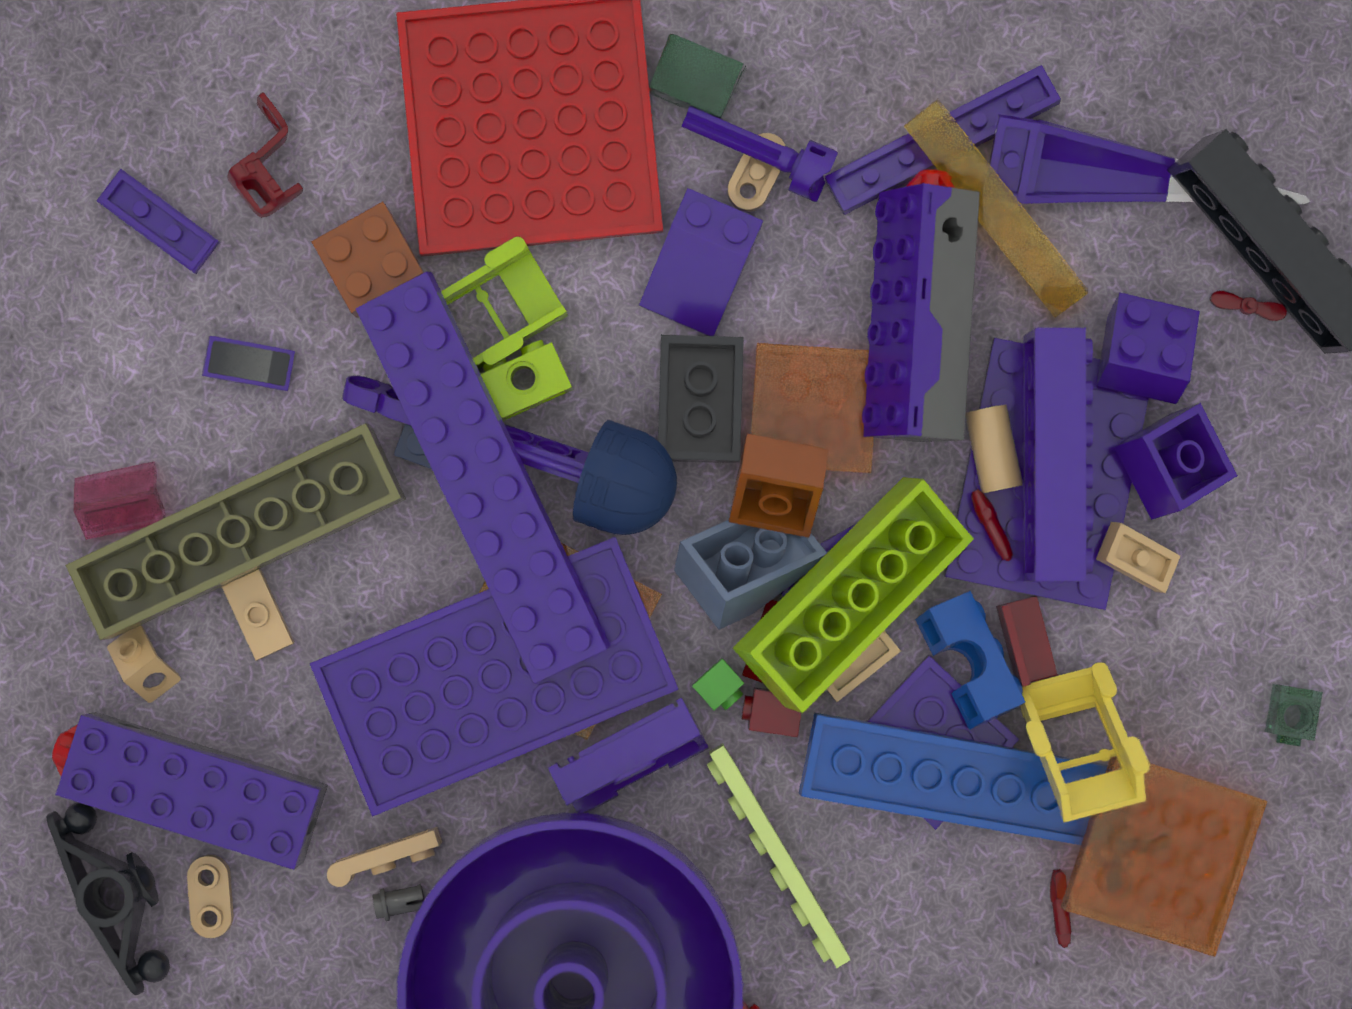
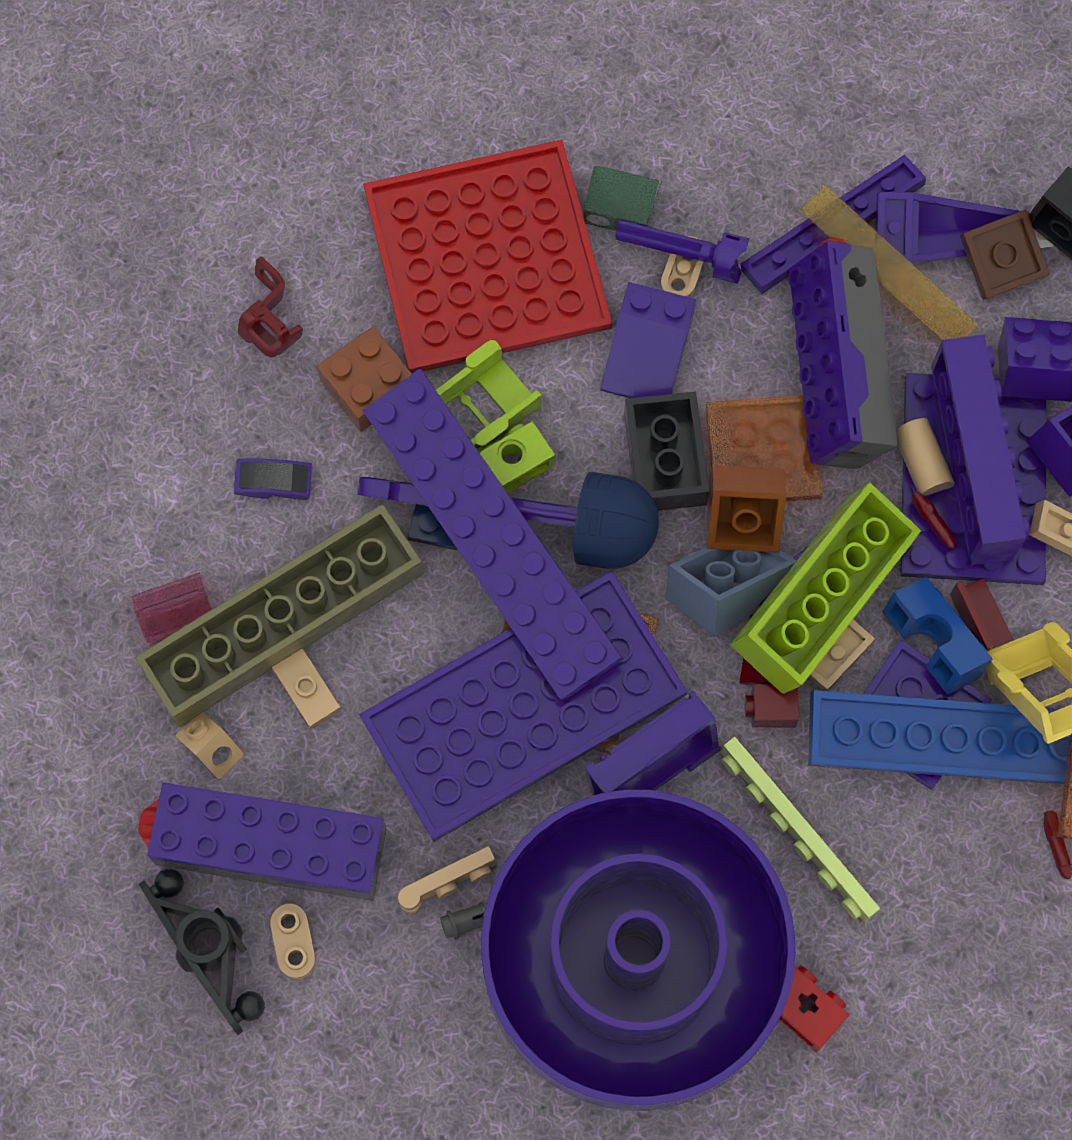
camera: 10 degrees left, 15 degrees down
(158, 221) = (181, 376): dark purple tile -> none
(719, 685) = (721, 689): bright green plate -> none
(1135, 209) = (1004, 254): none -> reddish brown plate

